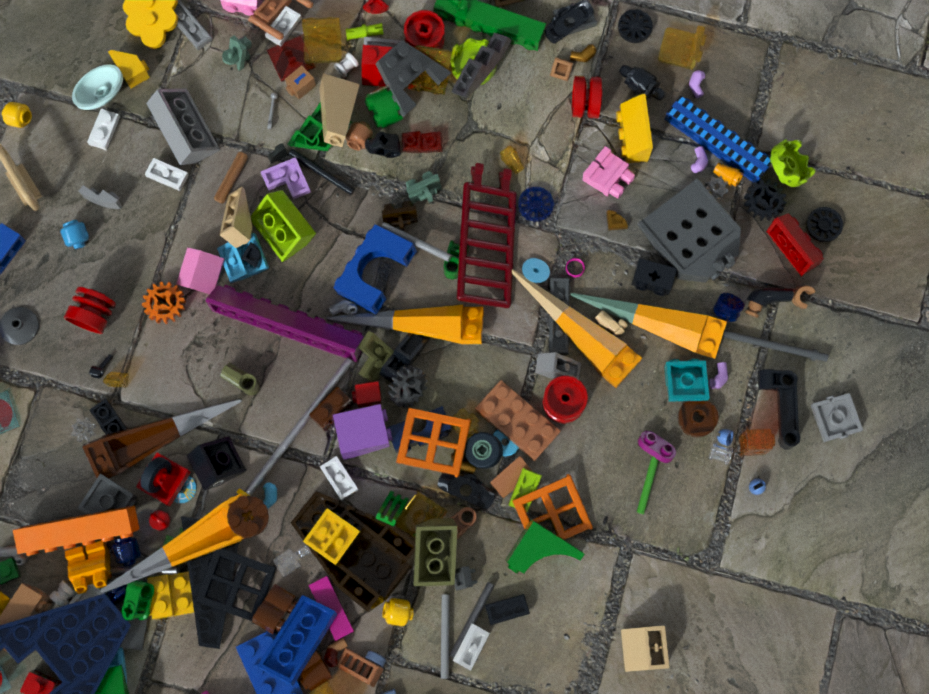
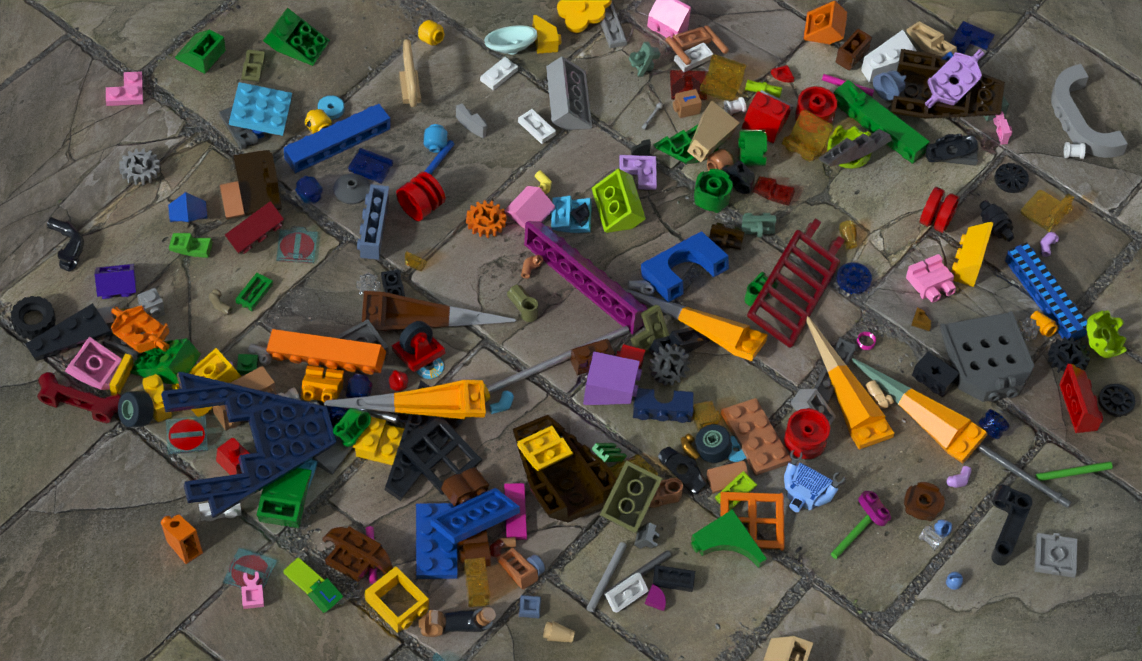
camera: 20 degrees right, 20 degrees down
(25, 292) = (370, 165): none -> clear blue plate
(57, 359) = (374, 222): none -> sand blue brick
(87, 258) = (437, 160): none -> blue bar
(97, 372) = (402, 248): black hand -> none
(203, 235) = (545, 182): none -> light yellow arm
(216, 462) = (470, 356): black slope -> none
(227, 333) = (530, 264): none -> nougat arm
(230, 177) = (591, 150): medium nougat axle -> none
(236, 222) = (581, 181): tan slope -> none
(244, 505) = (480, 388): reddish brown plate -> none
(289, 561) = (496, 458): clear plate -> none
(322, 172) = (672, 177): black bar -> none
(339, 478) = (572, 413): white plate -> none
(366, 160) = (713, 190): none -> green brick
(397, 612) = (573, 536): yellow head -> none
(403, 66) = (787, 119): dark grey wing -> none
(419, 243) = (736, 263): light grey bar -> none
(433, 441) = (671, 414): orange window -> none
(499, 637) = (656, 598): none -> magenta tile
(535, 270) = (829, 327): medium azure piece -> none
(561, 68) = (927, 184): medium nougat slope -> none
(584, 56) = (954, 182): pearl gold arm -> none
(588, 454) = (808, 486): none -> light blue torso
(686, 380) = (927, 464): teal plate -> none
(701, 161) = (1023, 304): lavender arm -> none
(756, 442) = (969, 538): clear orange brick -> none
(765, 295) = (1032, 430): piece -> none
(816, 319) = (1074, 471): none -> bright green bar

